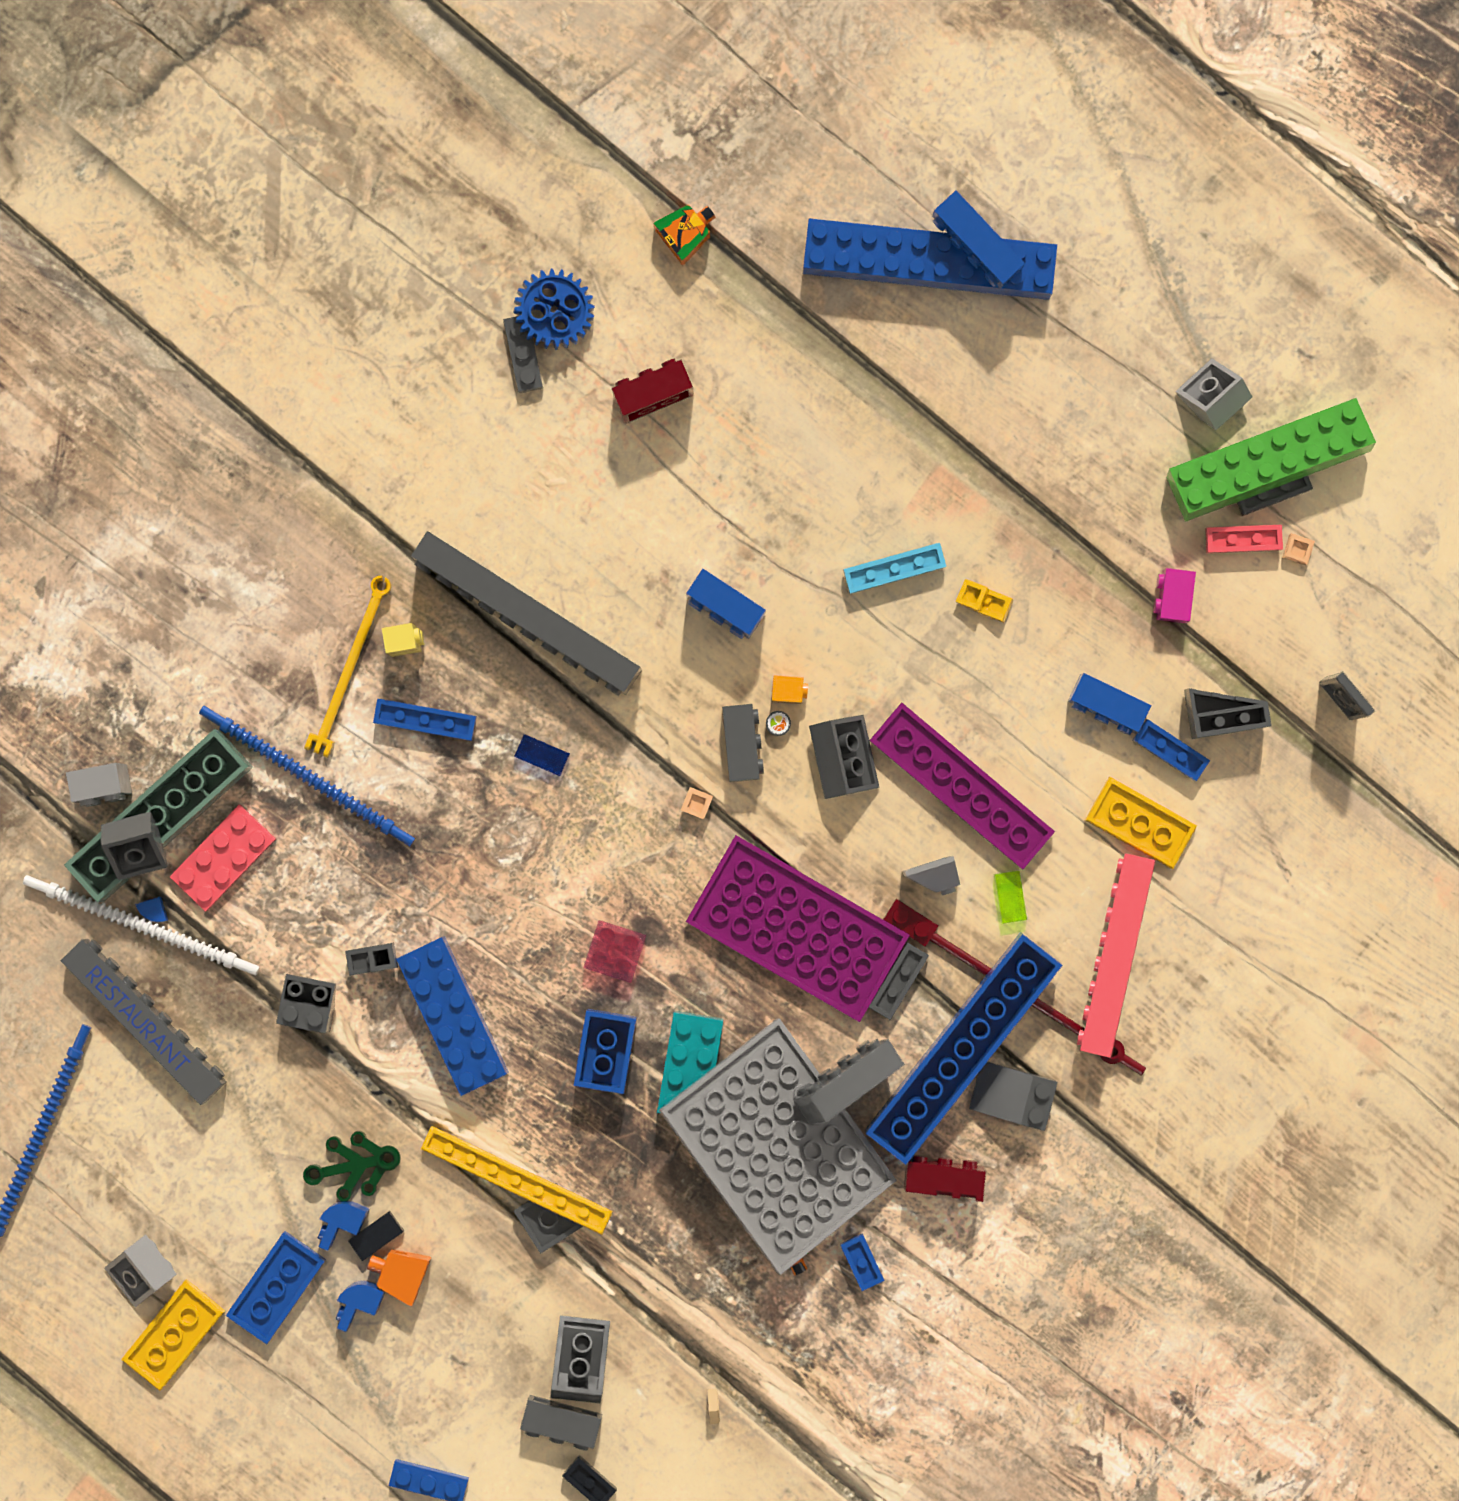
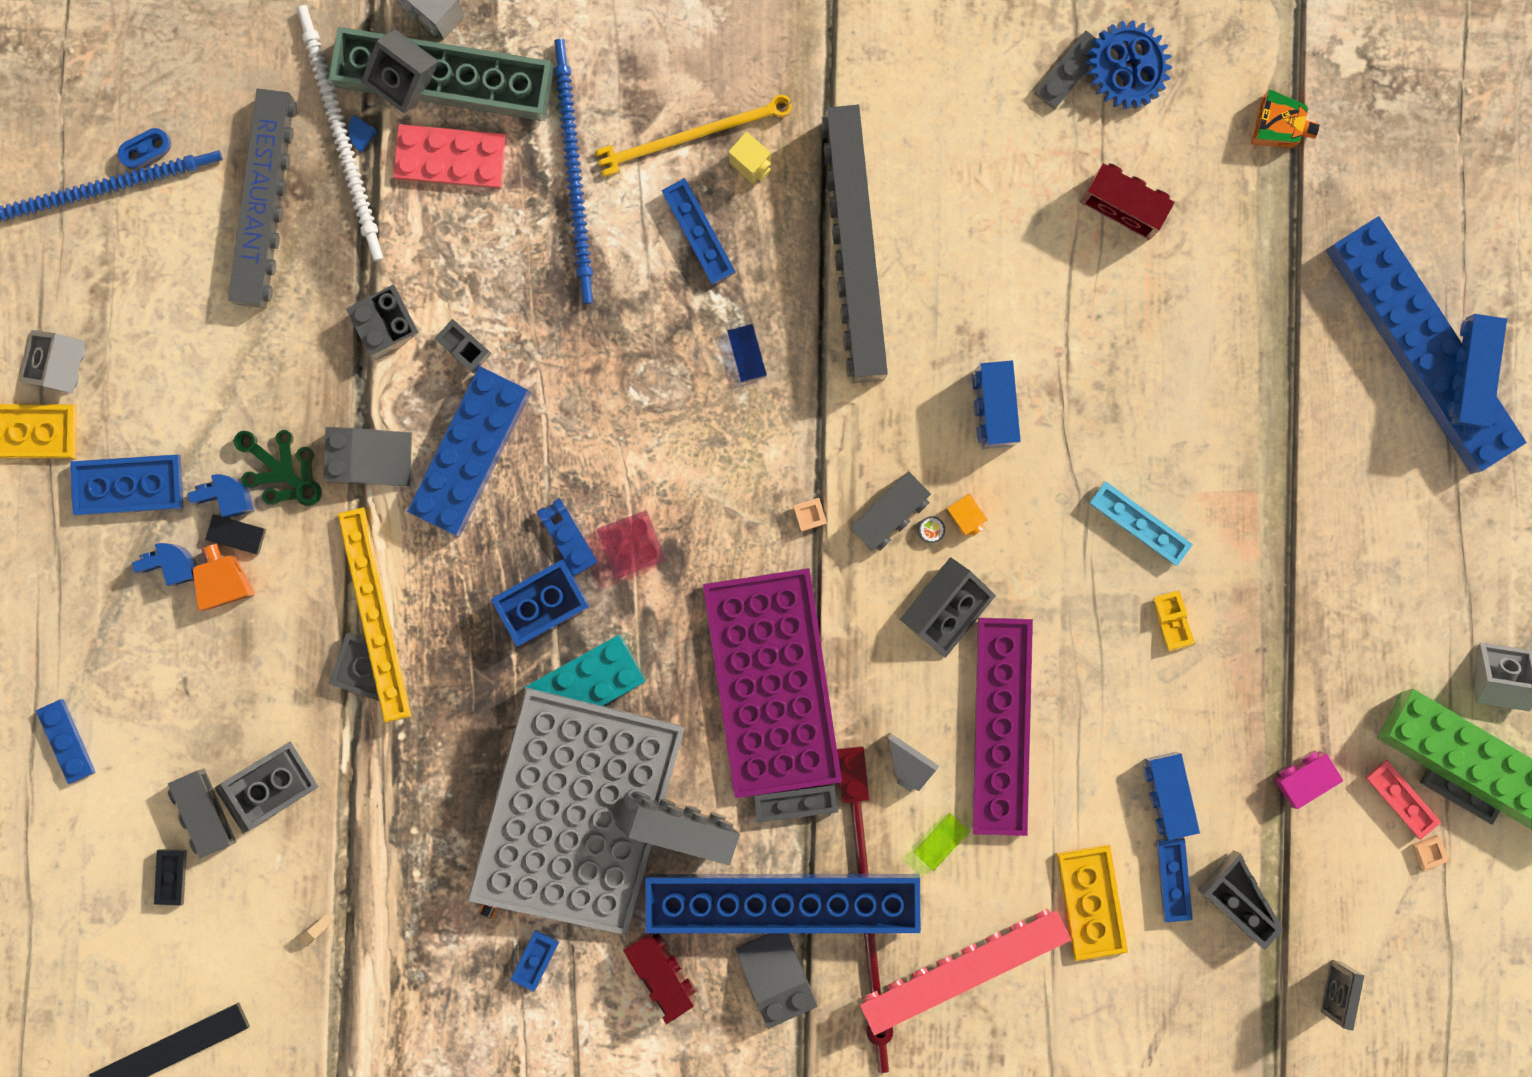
camera: 50 degrees right, 0 degrees up
(36, 1077) = (144, 146): none -> blue plate
(396, 1093) = (367, 456): none -> dark grey slope
(572, 993) = (568, 537): none -> blue plate

